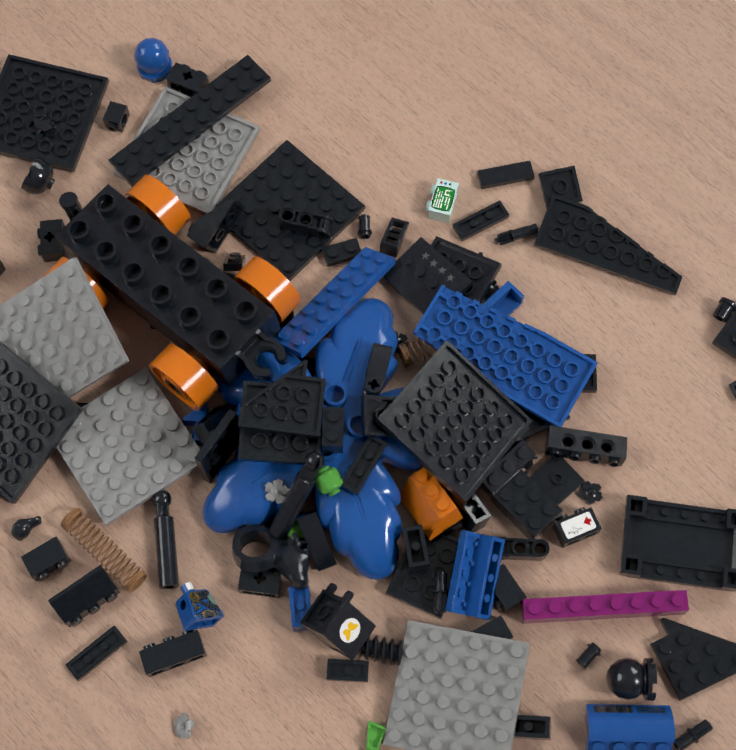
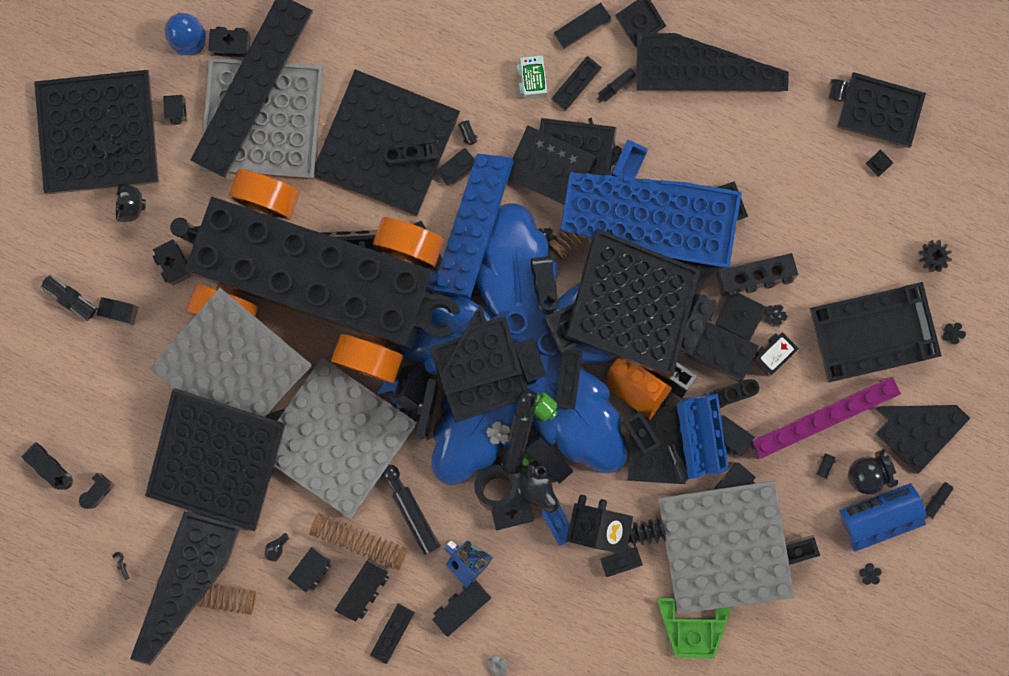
camera: 25 degrees left, 15 degrees up
(215, 226) = (324, 198): black slope -> none
(234, 262) = (360, 220): black plate -> none
(390, 247) = (499, 144): black slope -> none

